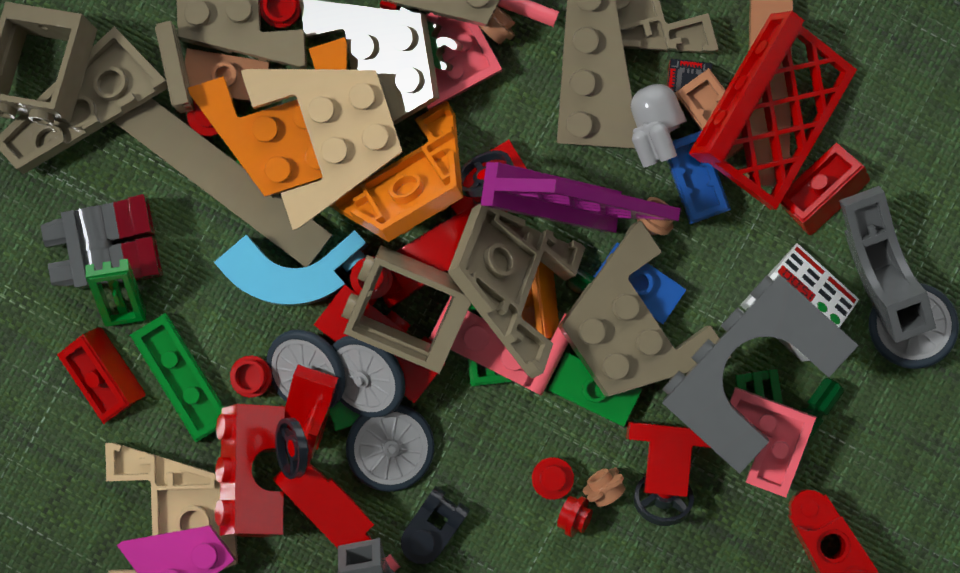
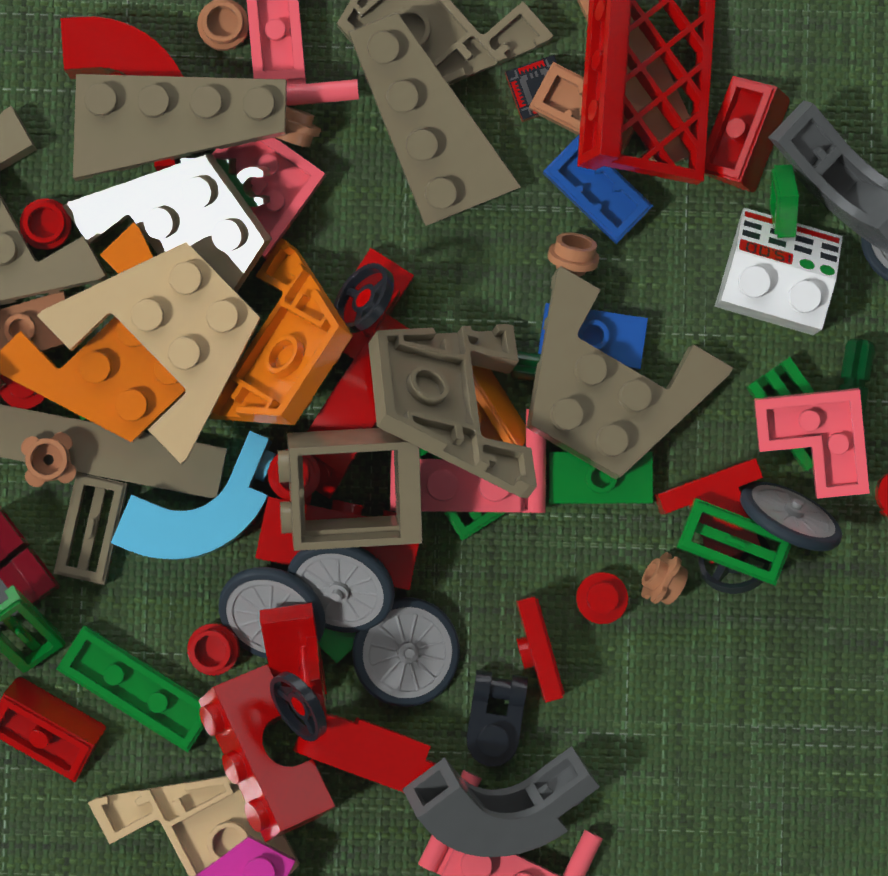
camera: 30 degrees left, 0 degrees up
(192, 169) = (35, 452): none -> nougat plate
(193, 233) = (82, 571): none -> dark tan tile
(486, 492) = (537, 650): none -> red plate
(565, 199) = (467, 282): magenta fence -> none
(574, 516) = (647, 627): red plate -> none
(644, 457) = (693, 525): none -> green tile
(655, 115) = (520, 142): light grey piece -> none
(700, 395) = (760, 294): dark grey arch -> none
(720, 486) = (791, 516): none -> wheel
(828, 252) = (784, 201): none -> green tile

